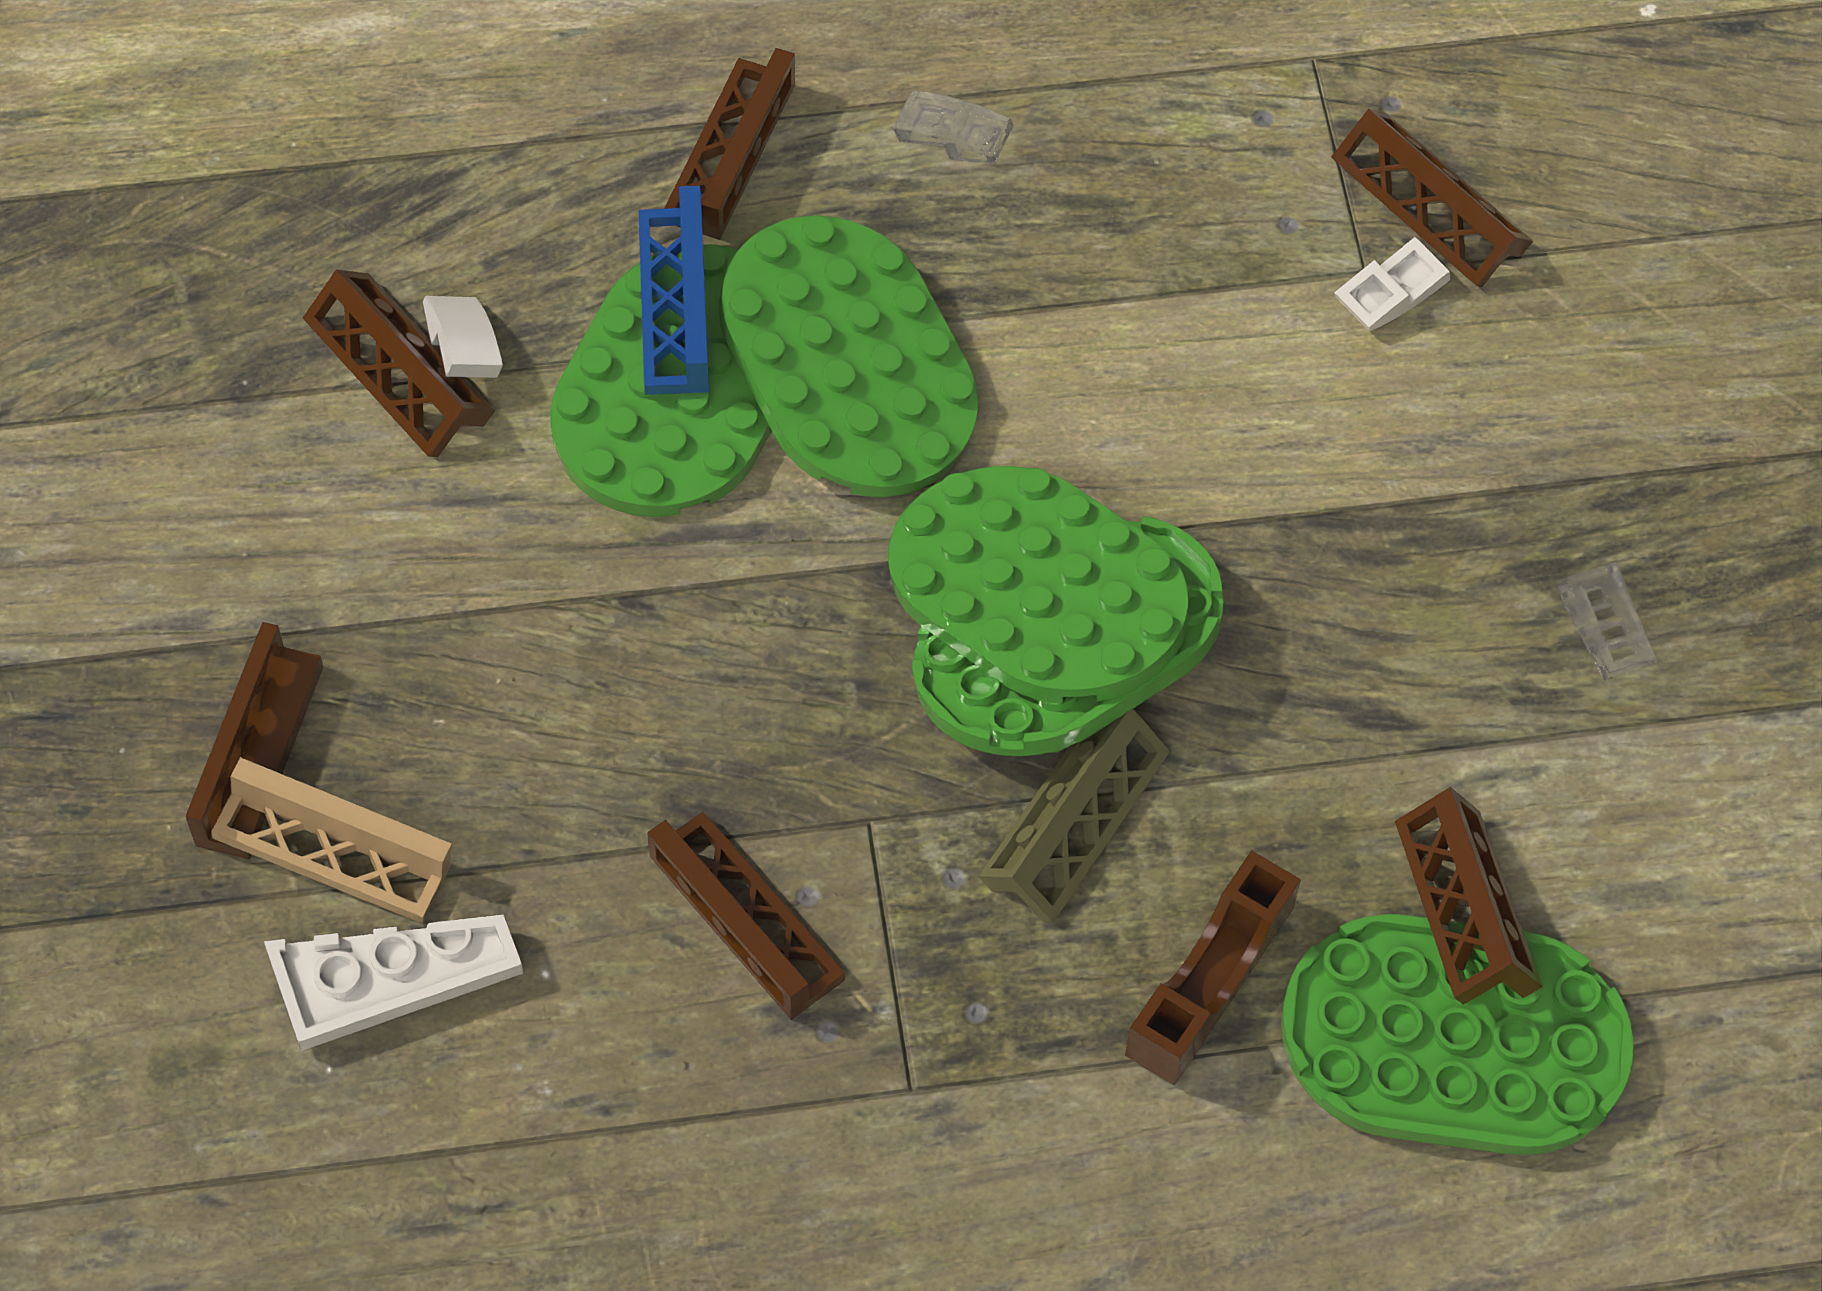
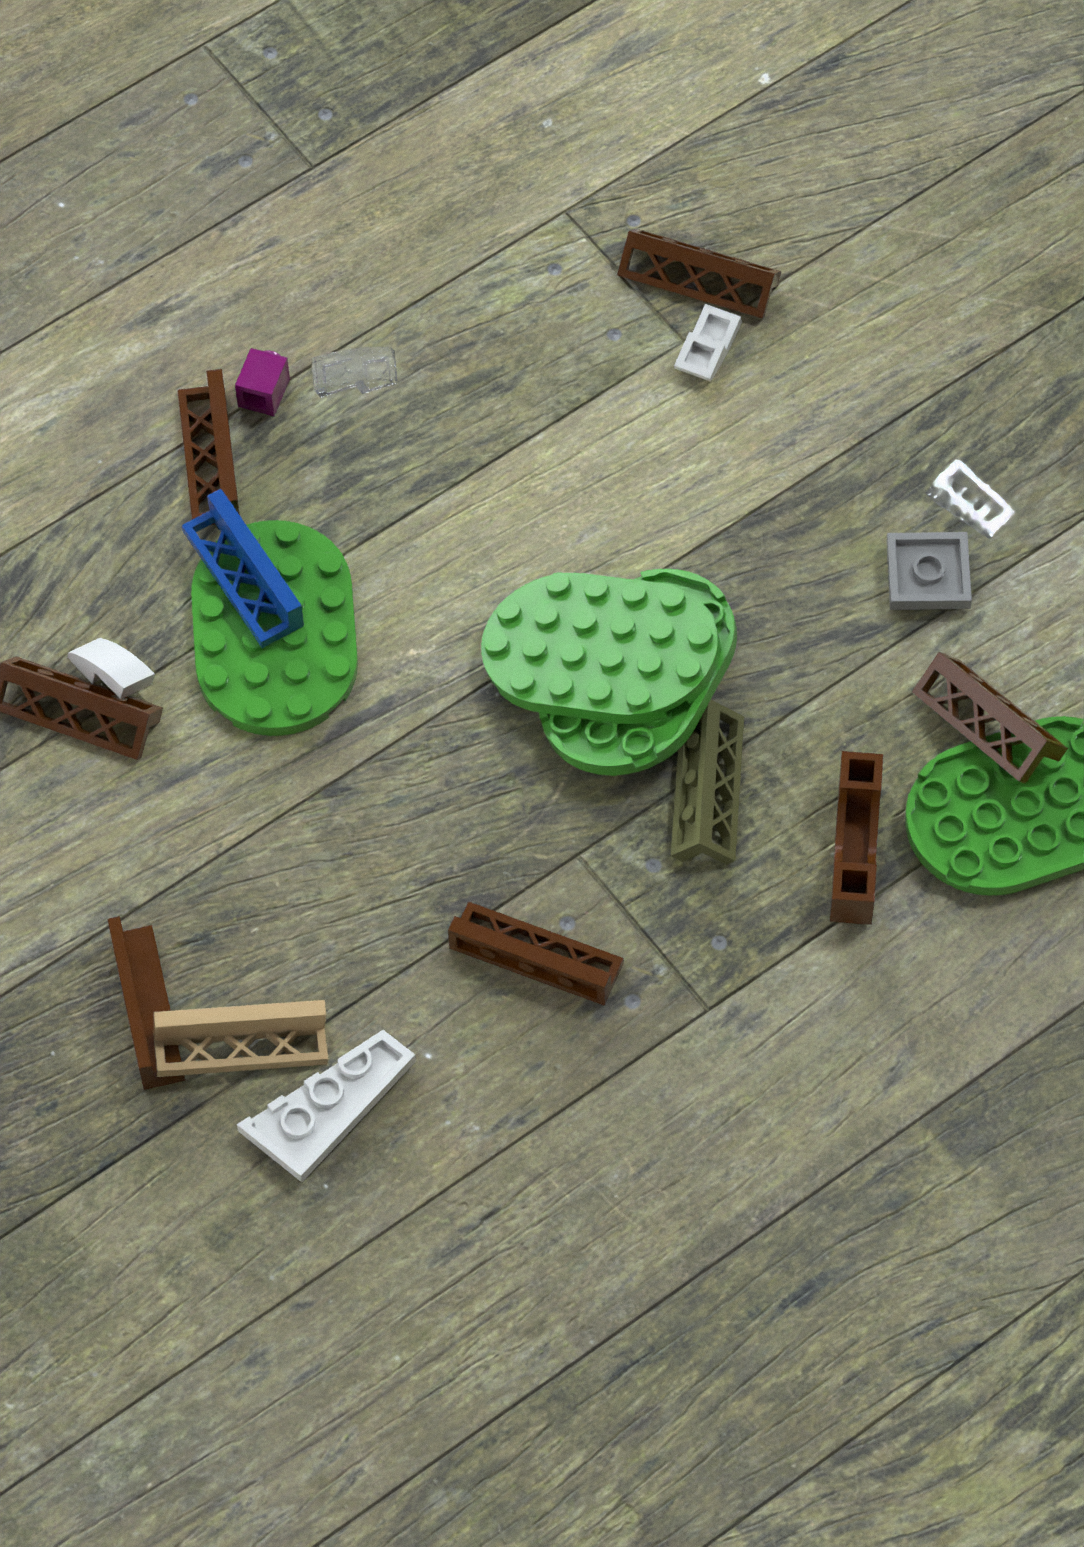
camera: 25 degrees left, 0 degrees up
(838, 91) = (262, 381): none -> magenta brick
(848, 355) = (381, 557): bright green plate -> none
(1502, 682) = (928, 570): none -> light grey plate

